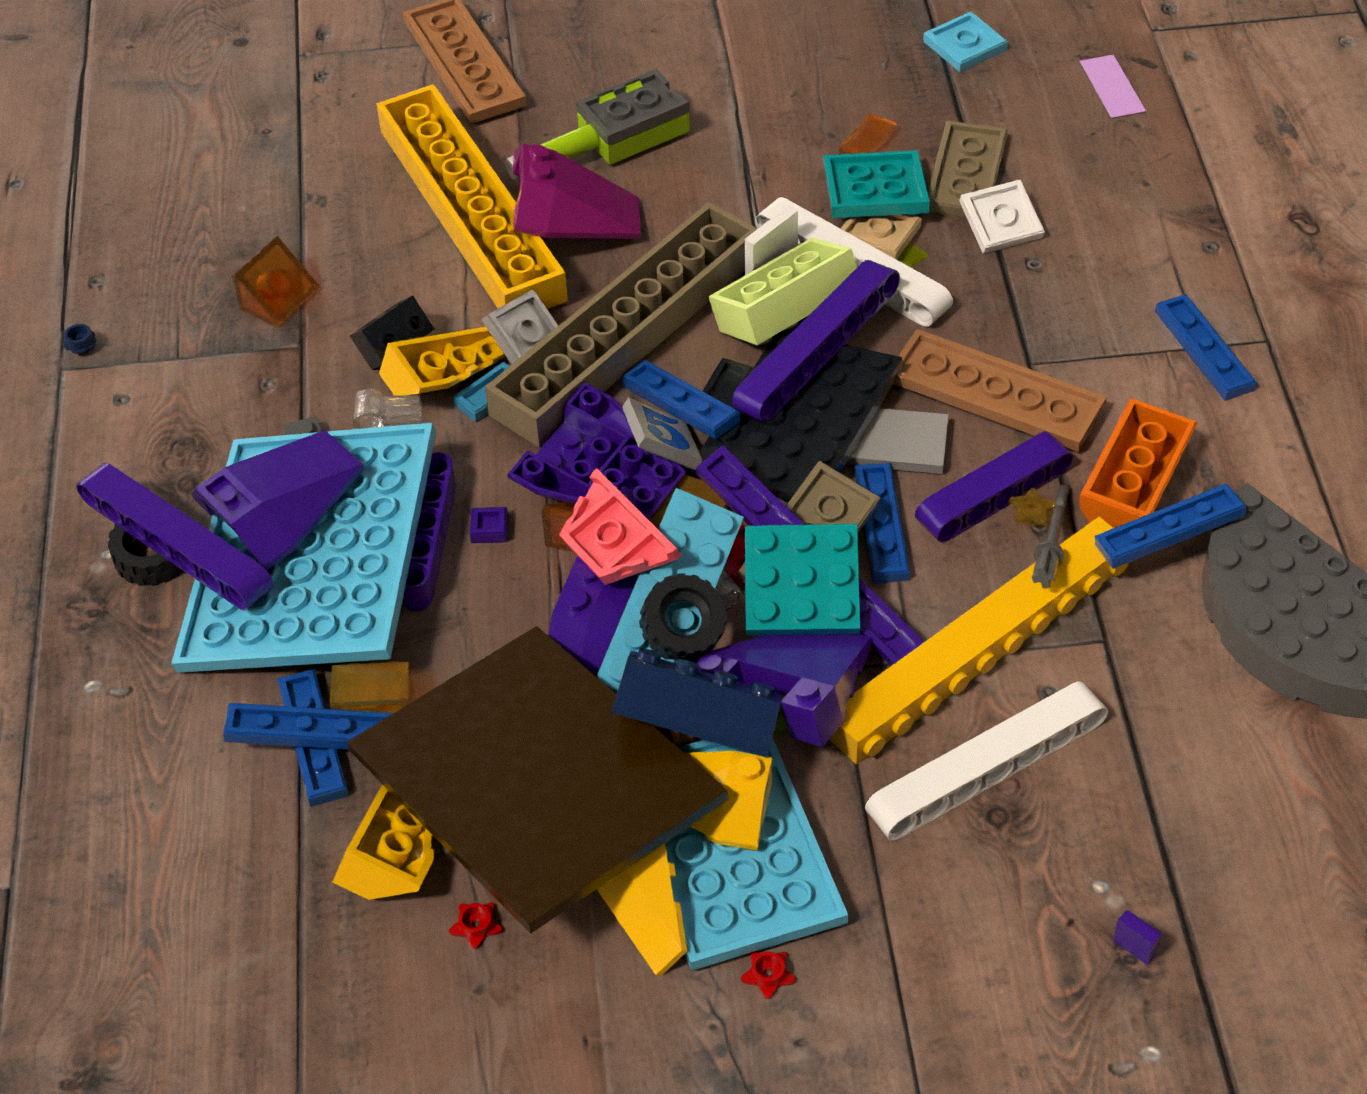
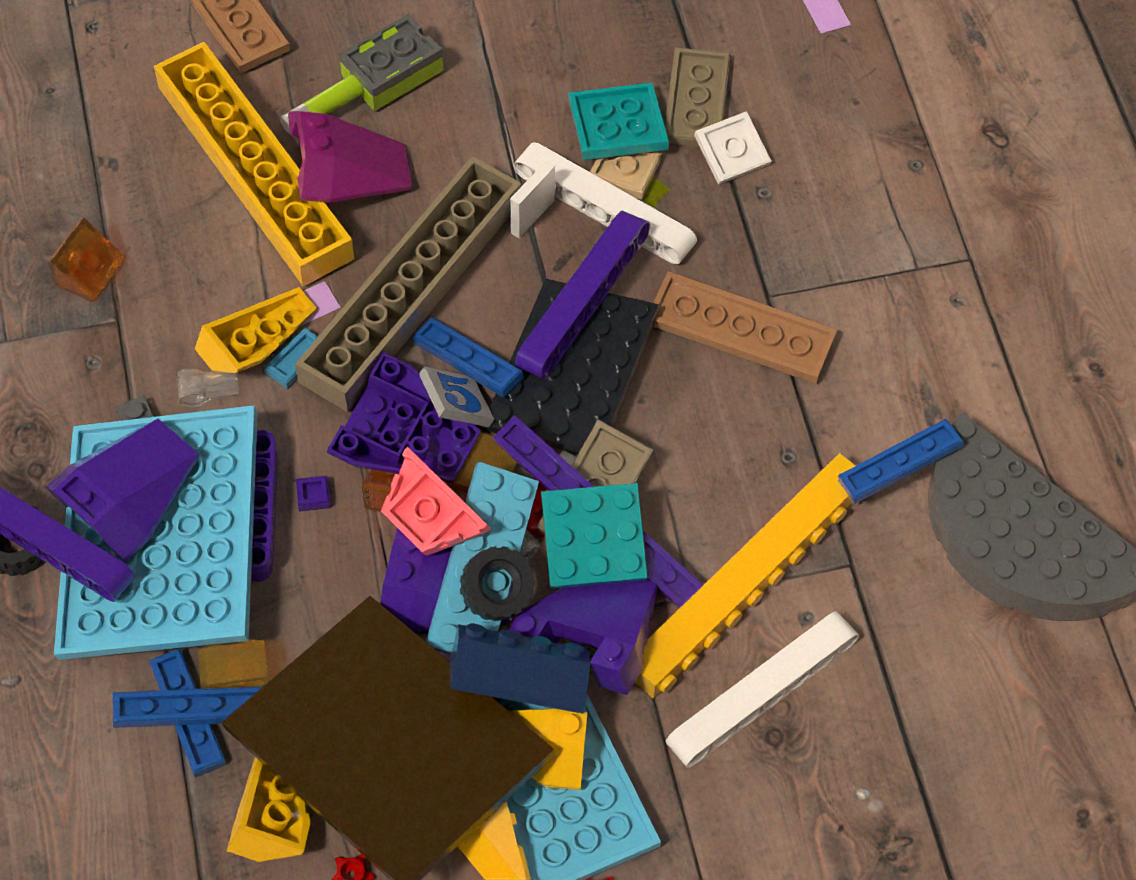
camera: 10 degrees left, 10 degrees up
(398, 323) = (201, 304): black brick -> none
(520, 325) = (319, 296): light grey tile -> none
(726, 379) = (505, 334): black tile -> none
(781, 291) = (548, 243): yellowish green brick -> none
(869, 135) = (606, 68): clear orange tile -> none
(883, 528) = (657, 474): blue tile -> none
(905, 440) = (666, 384): light grey tile -> none
(991, 486) = (747, 425): dark purple beam -> none
(1029, 516) = (777, 450): clear yellow plate -> none
(1048, 553) = (801, 496): dark grey piece -> none
(1136, 464) = (867, 400): orange brick -> none
(1137, 937) = (896, 840): dark purple tile -> none
(1205, 347) = (917, 270): blue tile -> none

